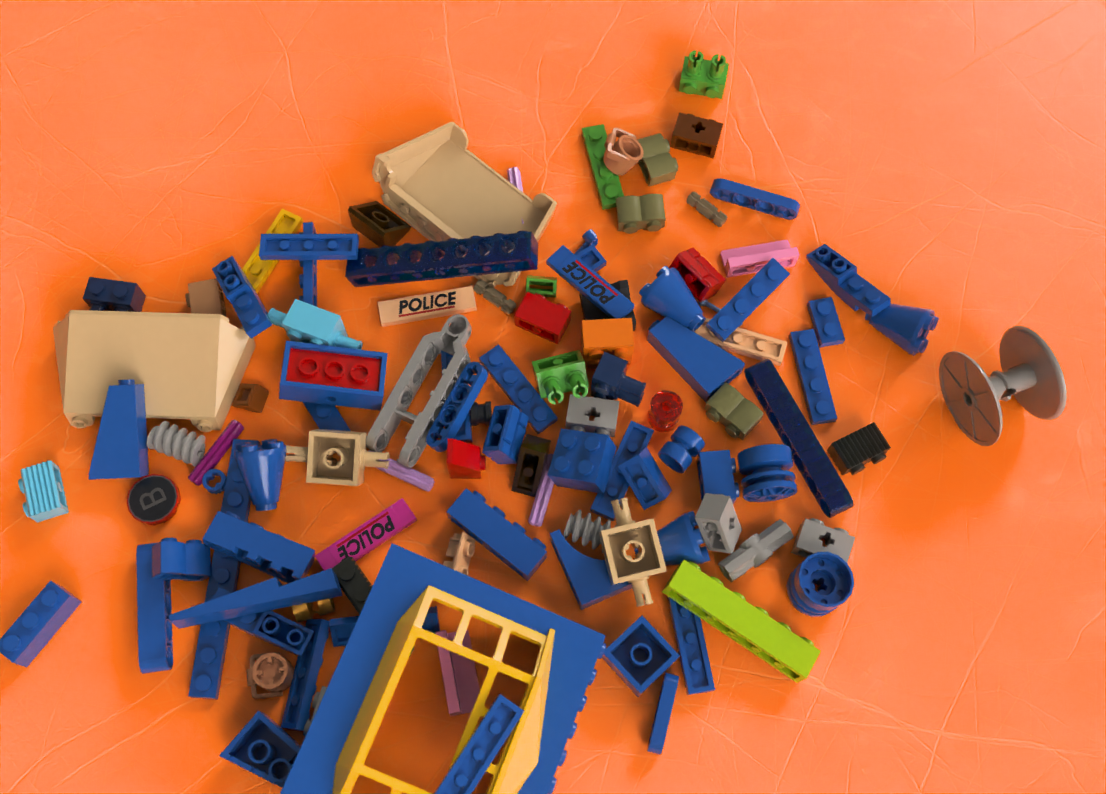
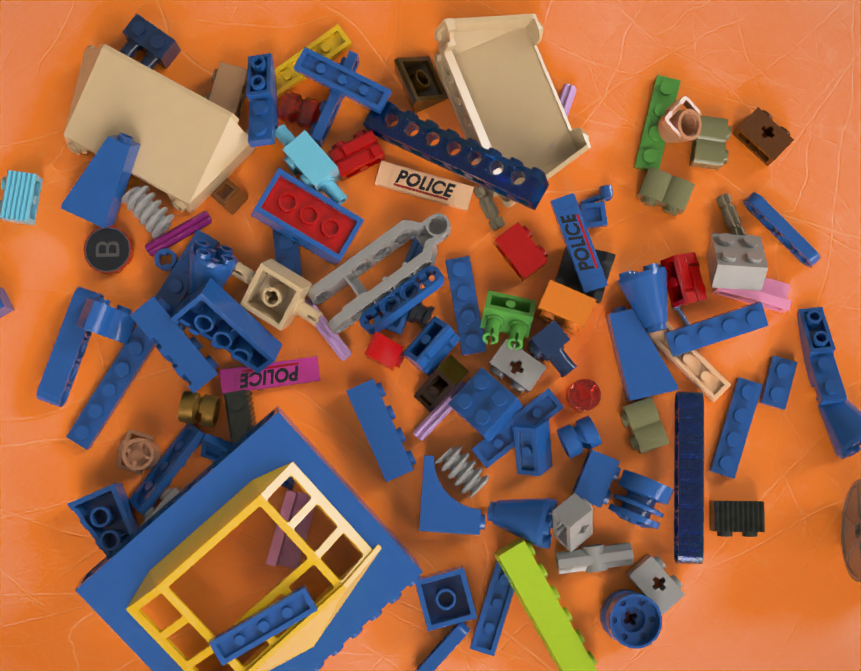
camera: 30 degrees right, 15 degrees up
(260, 598) = (159, 392): blue slope -> none
(272, 629) = (149, 406): blue slope -> none
(280, 293) = (299, 110): none -> clear red wheel
(303, 505) = (228, 325): none -> blue wedge
(354, 304) = (356, 154): none -> red brick
(461, 549) = (345, 428): light nougat hinge -> none
(542, 281) = (542, 216): bright green piece -> none
(648, 559) = (493, 525): tan brick -> none
(703, 75) = (804, 78): bright green brick -> none
(732, 236) = (736, 261): none -> light grey brick

